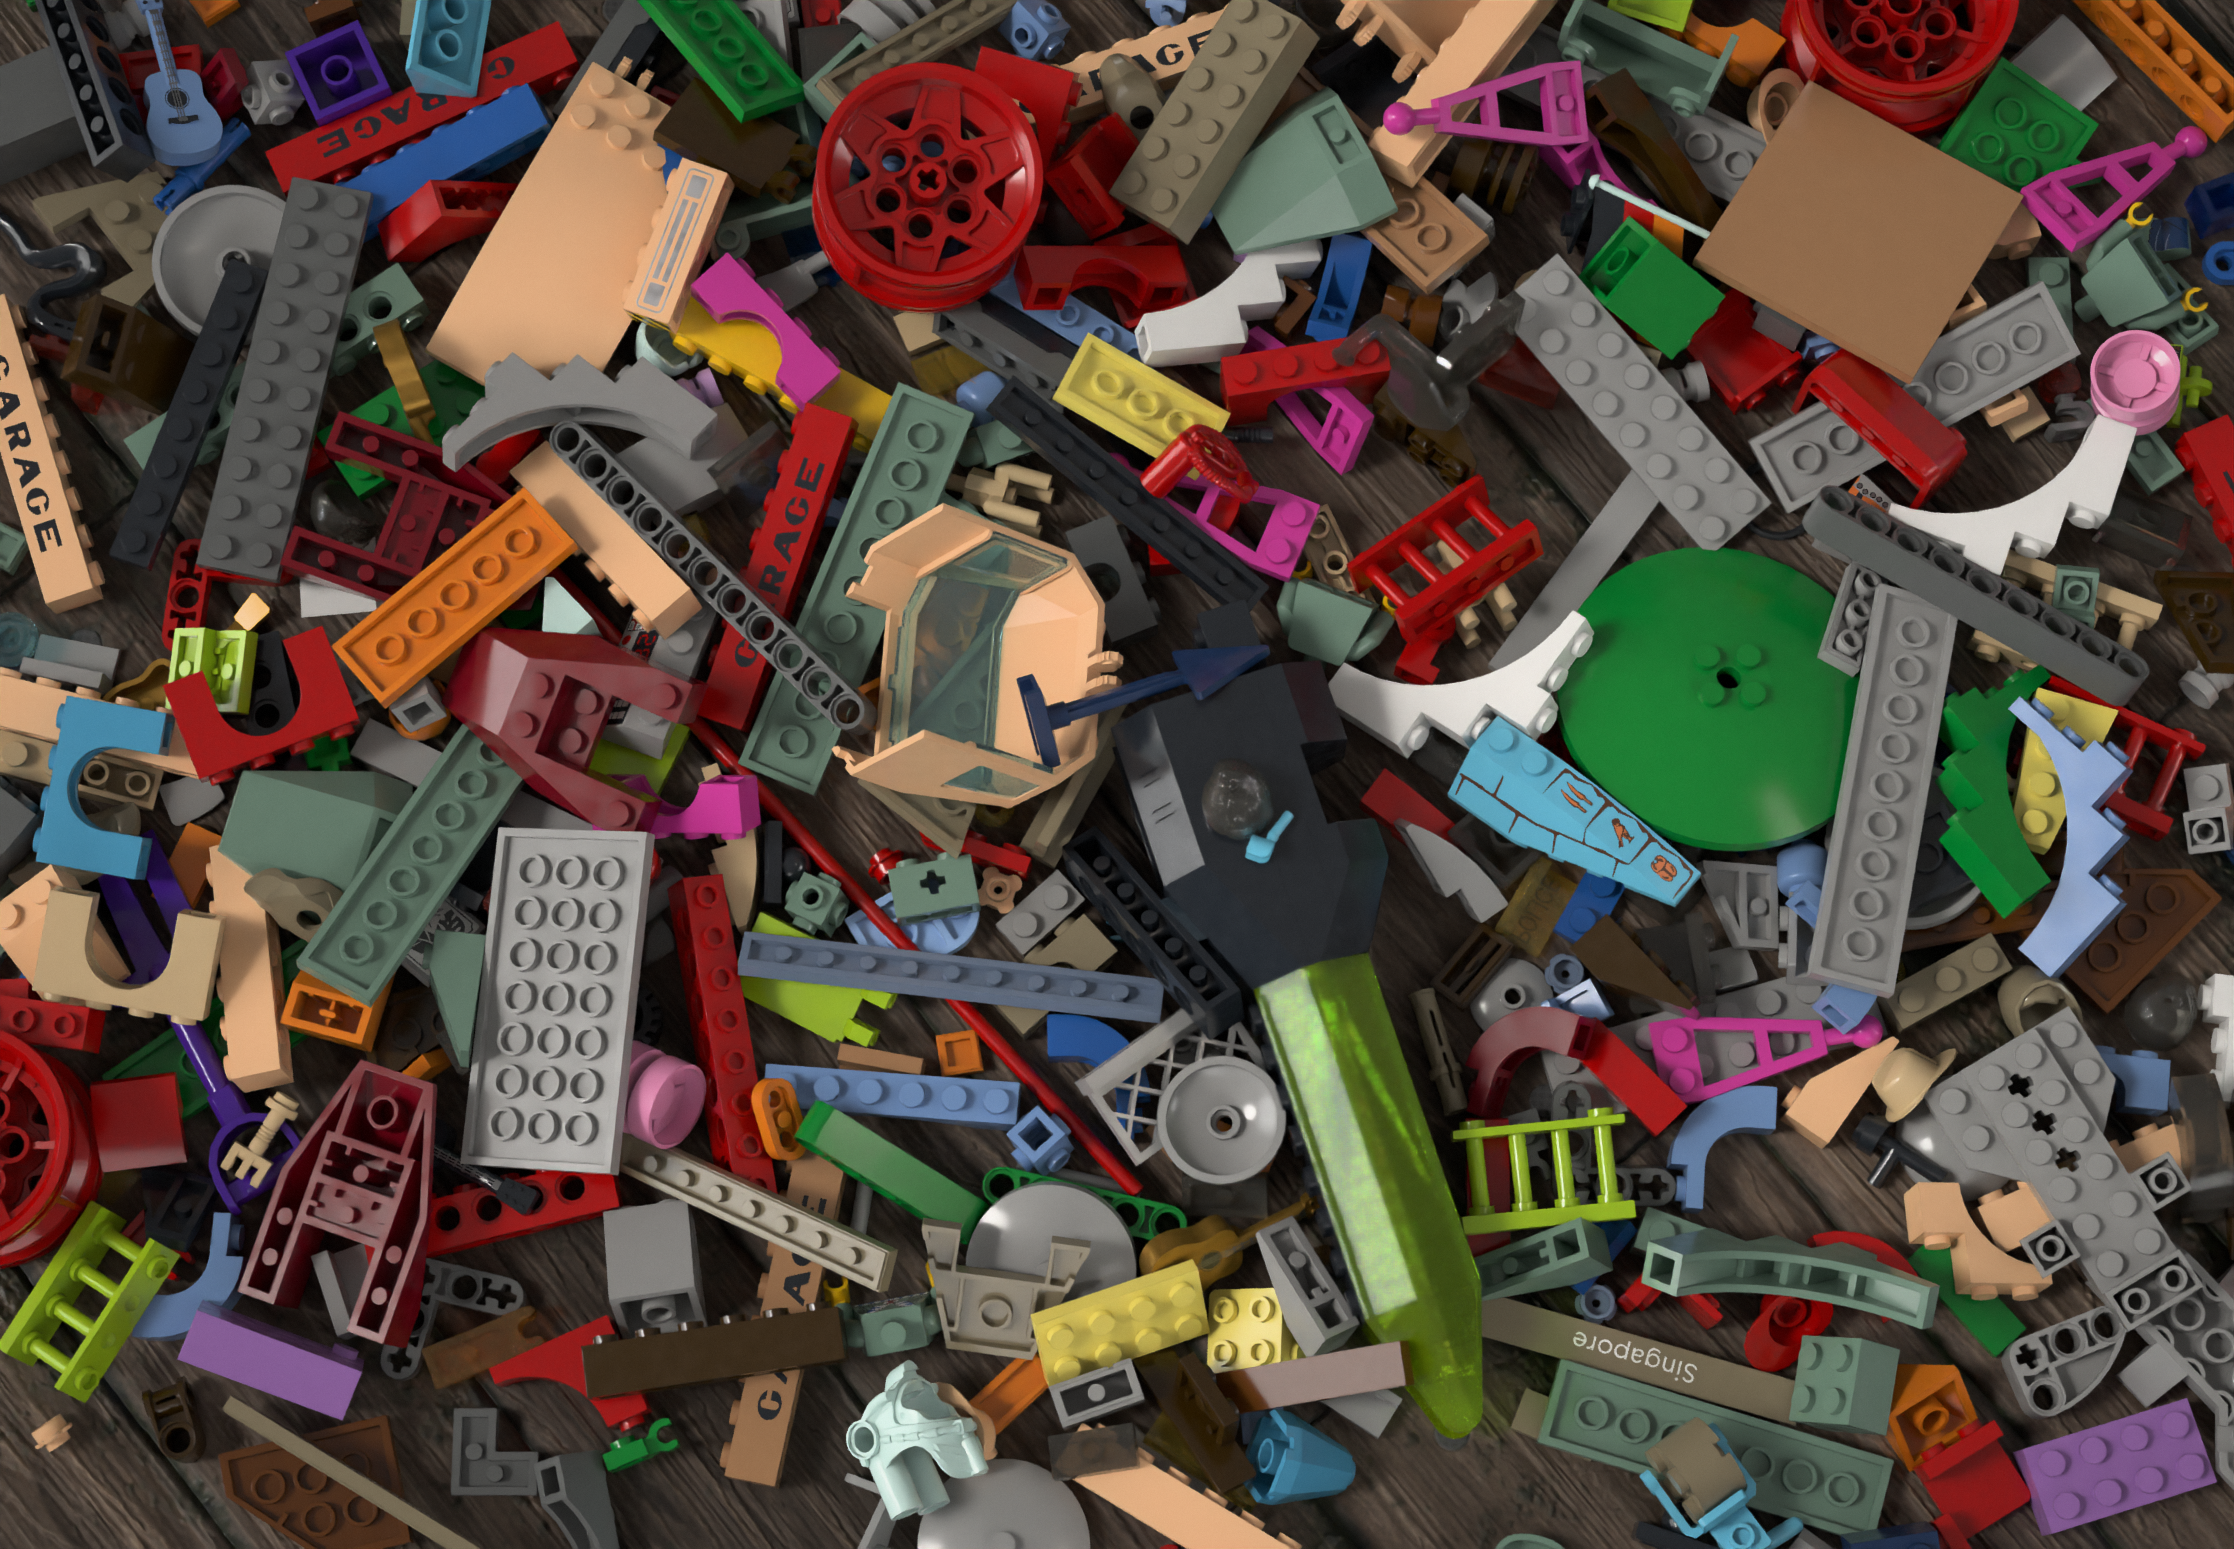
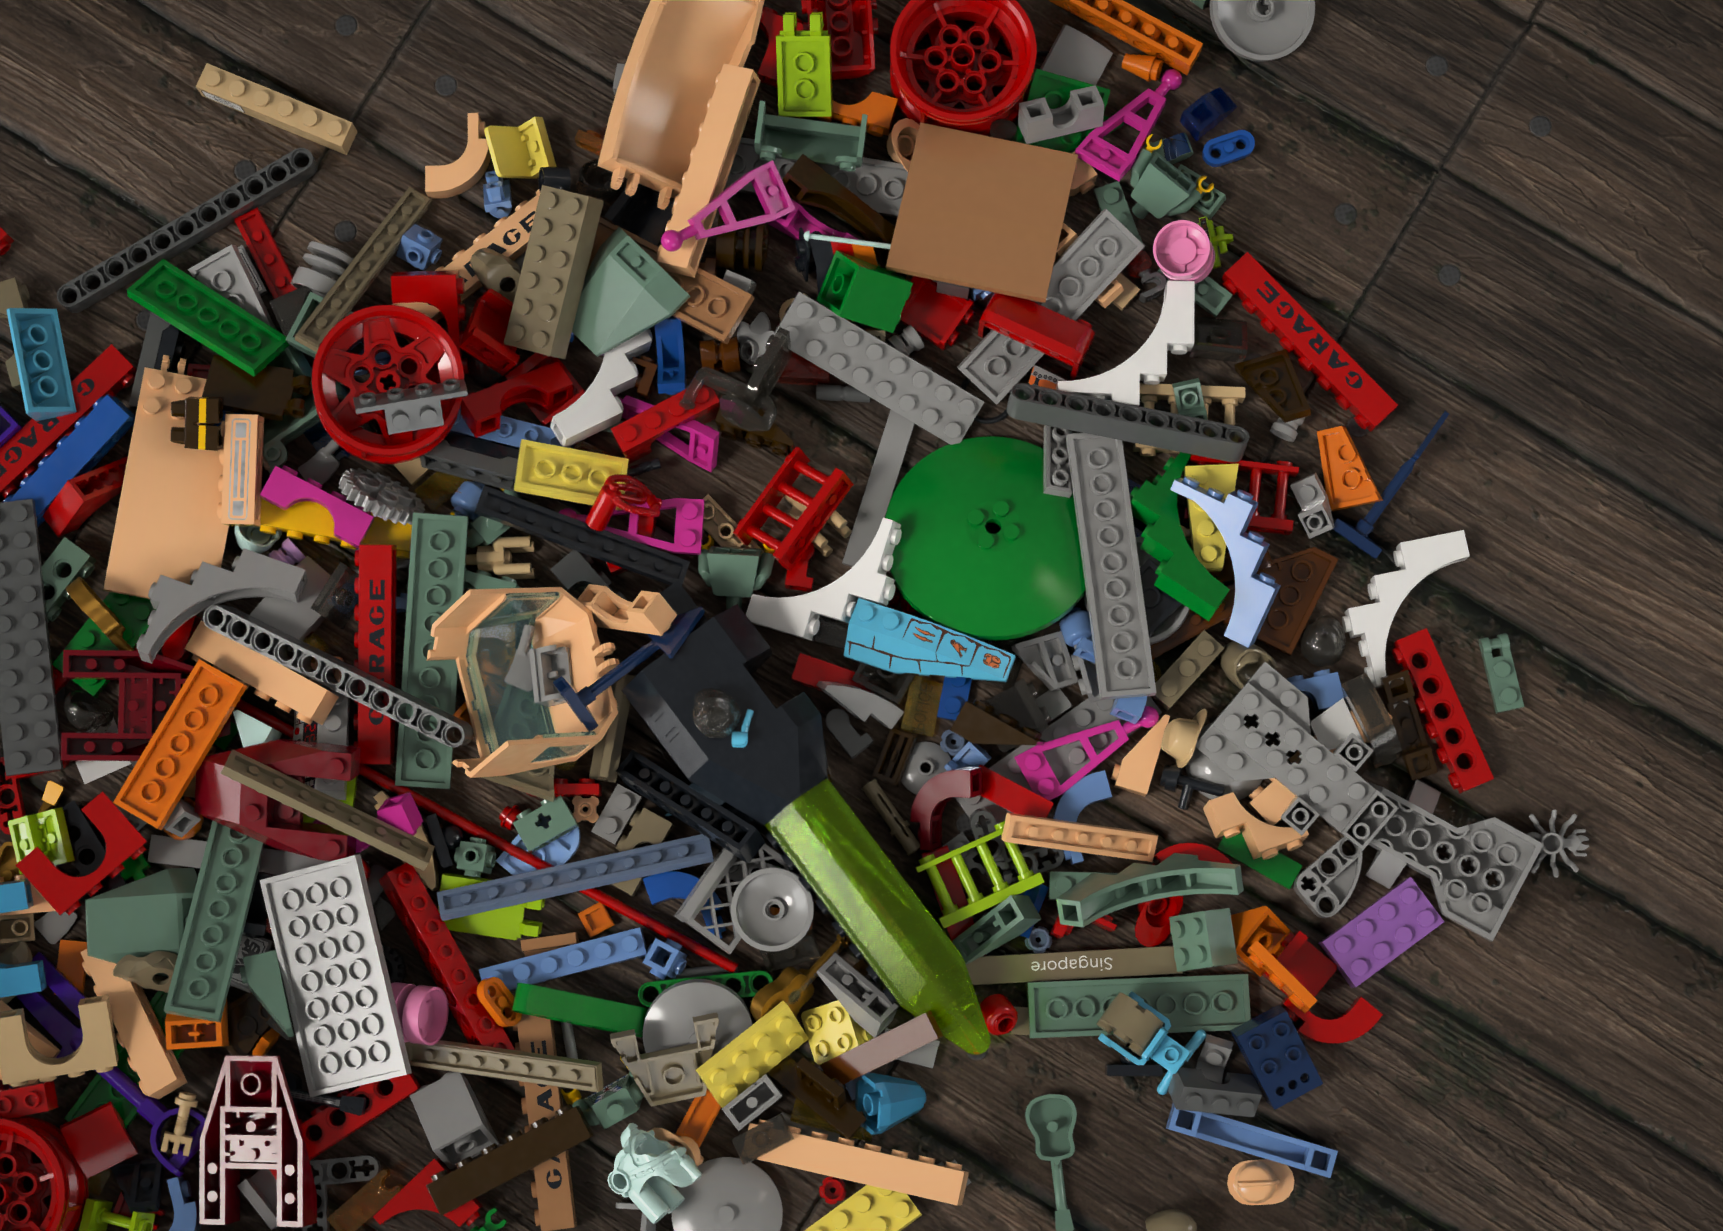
camera: 20 degrees left, 5 degrees up
(631, 756) = (328, 810): none -> dark tan plate
(642, 139) = (197, 411): none -> dark brown hips
(859, 347) = (380, 495): none -> light grey gear
(949, 222) = (411, 407): none -> dark grey bracket
(984, 651) = (520, 670): none -> light grey piece
(1013, 657) = (548, 665): none -> light grey hinge
(1183, 629) = (646, 614): none -> light nougat arch
(1412, 911) = (840, 727): none -> dark grey leg
(1504, 1391) = (998, 1014): none -> red head
(1565, 424) = (838, 393): none -> dark grey piece
(1708, 1170) = (1079, 837): none -> light nougat plate
(1926, 129) = (1003, 129): none -> clear smoke tile
(1947, 1478) = (1281, 977): none -> orange wing
(2046, 140) = (1080, 113): none -> light grey arch
(2141, 1135) = (1334, 725): none -> white sticker
(2156, 109) = (1143, 66): none -> orange cone

